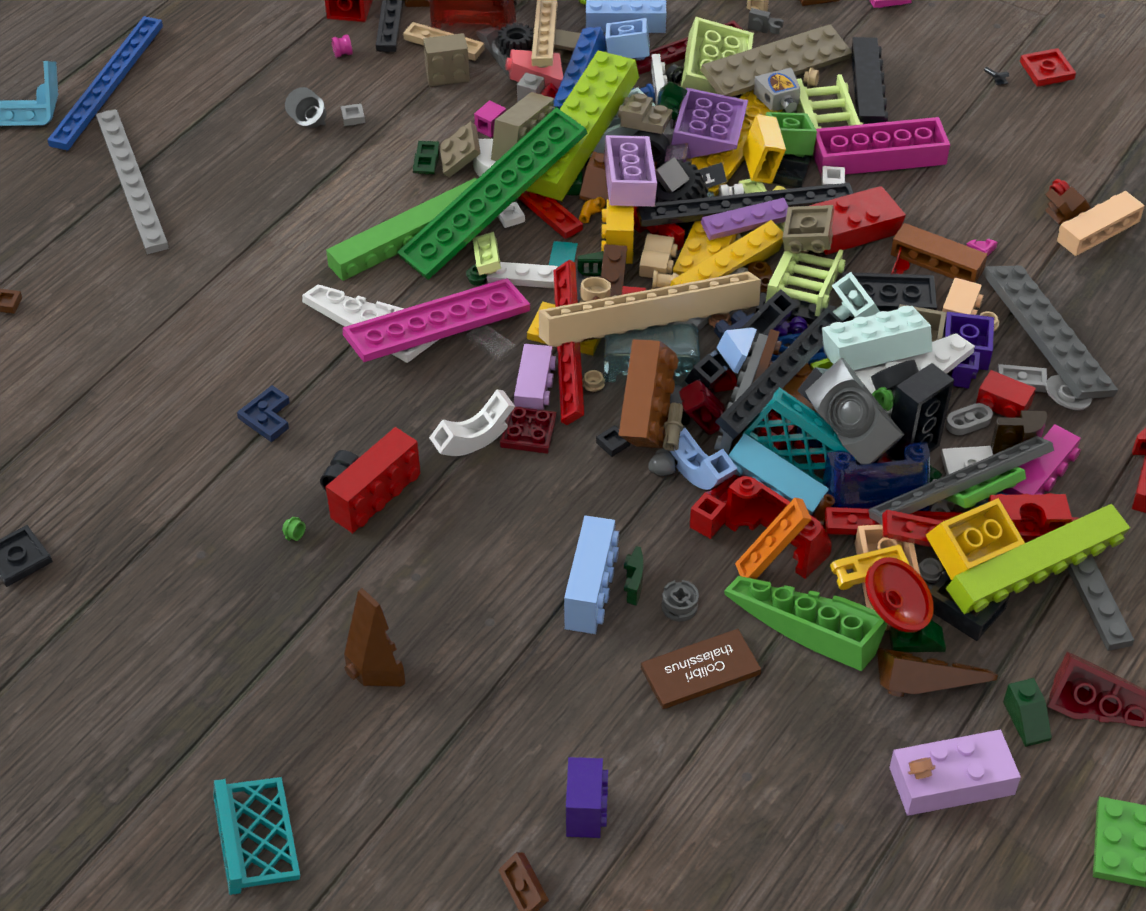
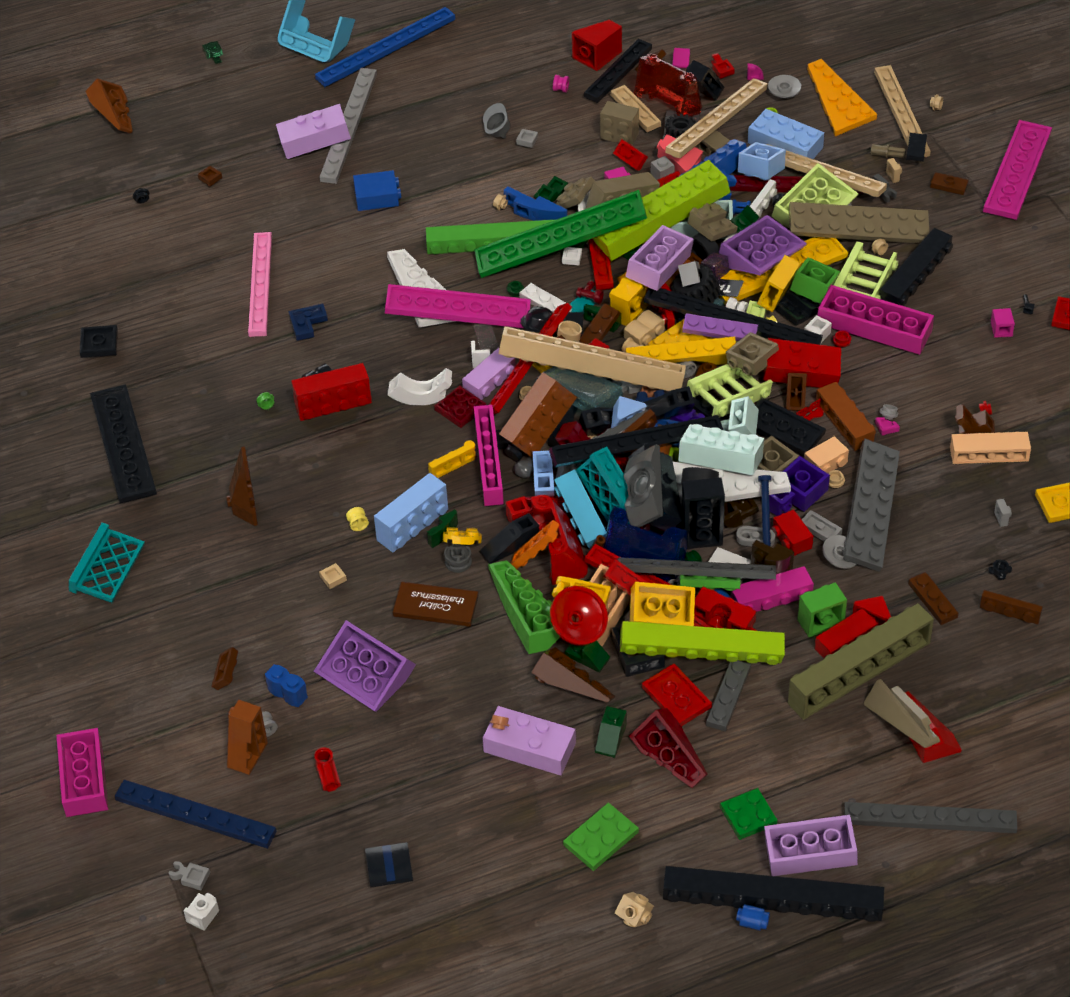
camera: 35 degrees right, 0 degrees up
(101, 200) = (313, 131): none -> lavender brick
(153, 668) = (123, 444): none -> black plate
(171, 398) = (260, 284): none -> bright pink tile
(227, 235) = (376, 190): none -> blue brick
(381, 191) = (500, 202): none -> tan plate
(426, 183) = (533, 209): none -> blue slope
(481, 88) = (630, 155): none -> red plate
(486, 253) = (529, 276): yellowish green plate -> none
(504, 365) = (478, 355): none -> white panel
(526, 614) = (357, 519): none -> light yellow wheel
(537, 294) = (535, 318): none -> black piece
(555, 697) = (333, 576): none -> tan plate
(559, 246) = (597, 296): none -> dark red piece
(576, 493) = (453, 460): none -> yellow plate
(586, 797) = (295, 637): dark purple brick -> none
(617, 467) = (488, 455): none -> dark pink brick
(619, 864) = (286, 685): none -> blue brick
(638, 452) = (513, 453): none -> black tile
(671, 572) = (462, 537): none -> yellow plate
(673, 427) = (540, 445): dark tan axle -> none
(682, 27) = (853, 180): none -> tan plate
(689, 789) = (364, 666): none -> medium lavender slope
(725, 549) = (510, 538): none -> black slope
(778, 90) = (837, 245): light grey torso -> none
(860, 181) = (842, 339): none -> red plate
(869, 251) = (796, 391): none -> reddish brown slope
(884, 398) = (676, 488): bright green plate -> none
(974, 231) = (889, 411): none -> light grey plate
(980, 400) = (764, 480): none -> dark blue bar
(995, 100) = (1002, 322): none -> dark pink brick
(1052, 631) = (677, 693): none -> red plate
(1114, 460) = (821, 609): none -> bright green brick

